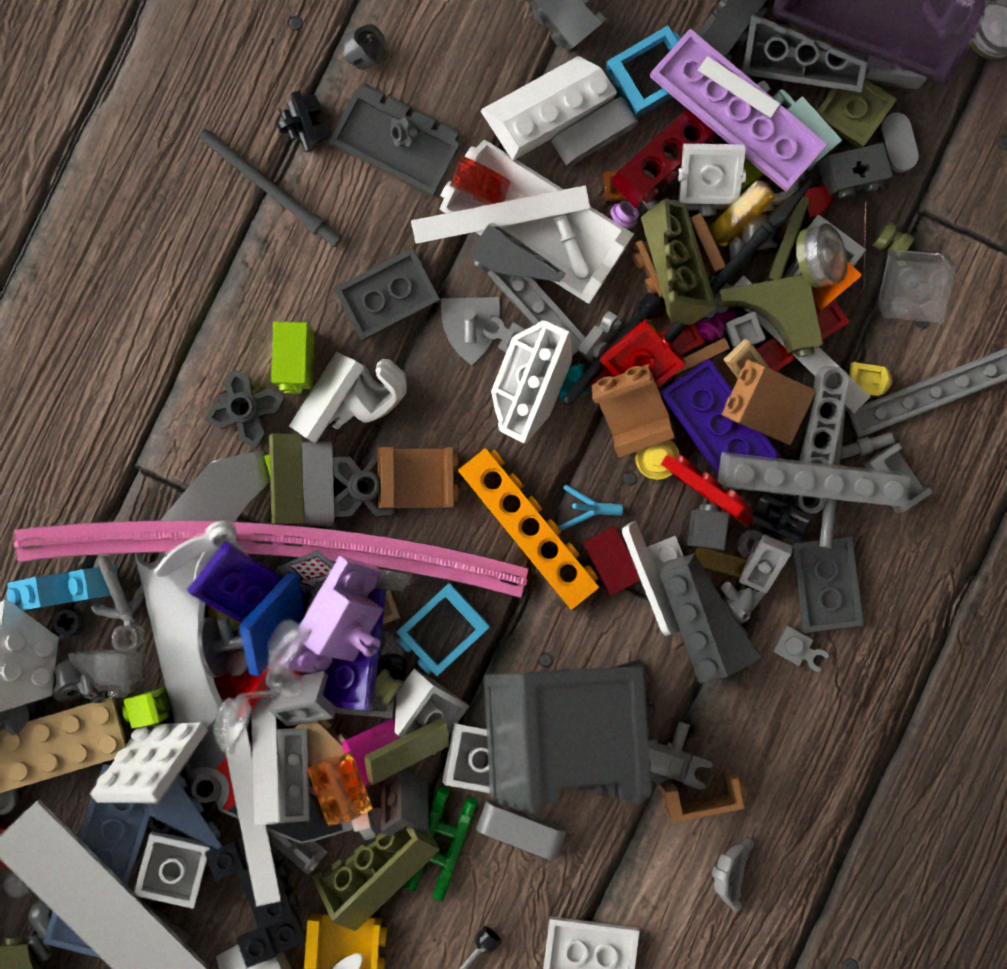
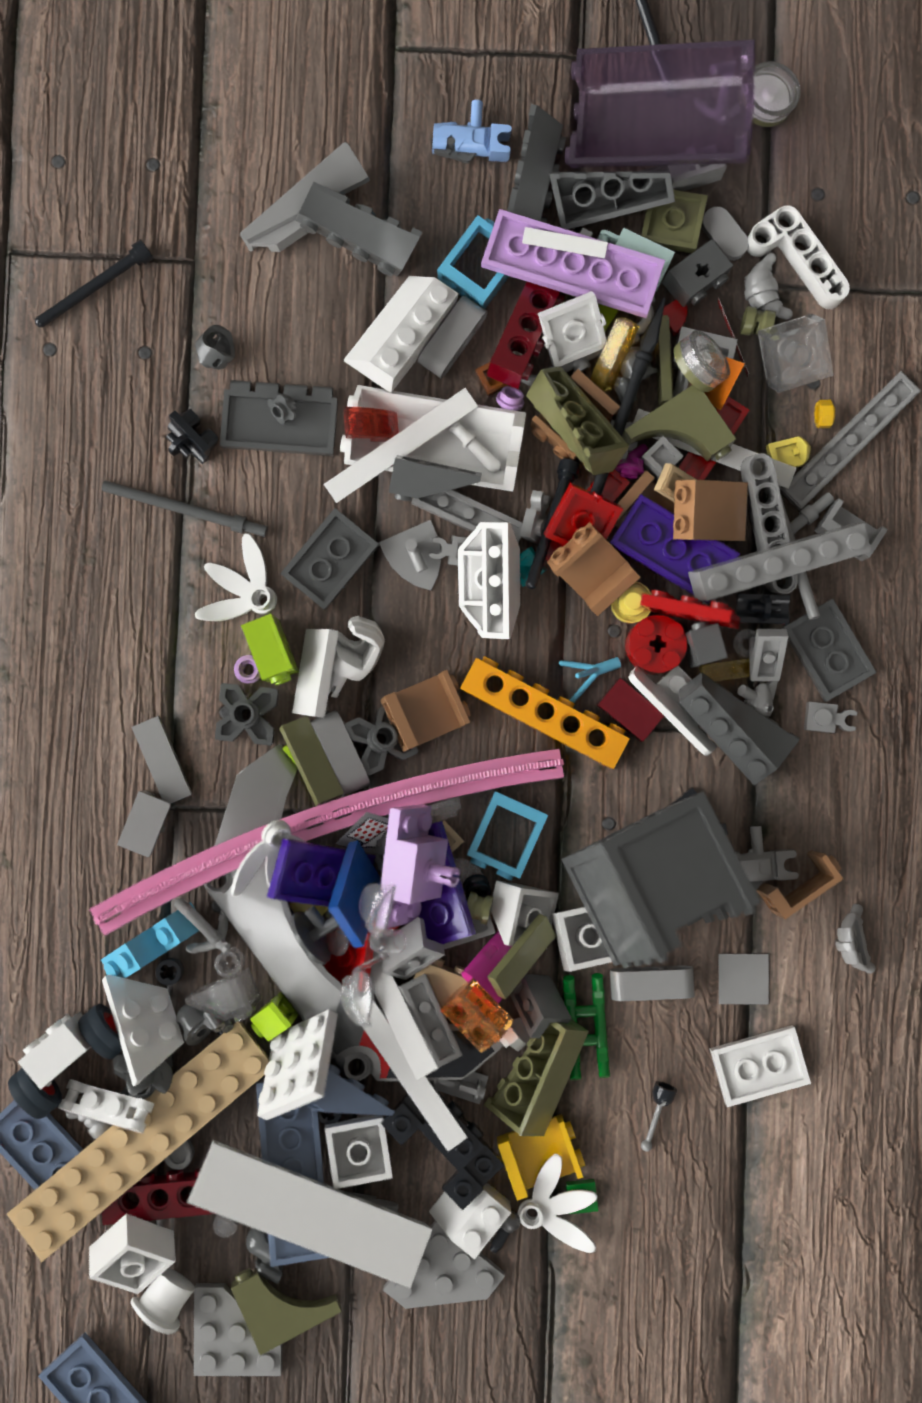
camera: 25 degrees left, 0 degrees up
(103, 471) = (144, 823): none -> light grey panel
(145, 418) = (162, 760): none -> light grey tile
(255, 366) = (239, 670): none -> lavender plate
(297, 294) = (249, 592): none -> white plant
(611, 864) = (743, 978): none -> light grey sticker
(679, 503) = (669, 635): none -> red brick
(912, 211) = (762, 288): none -> light grey piece
(920, 356) = (824, 414): none -> yellow tile
(961, 199) = (801, 260): none -> white beam

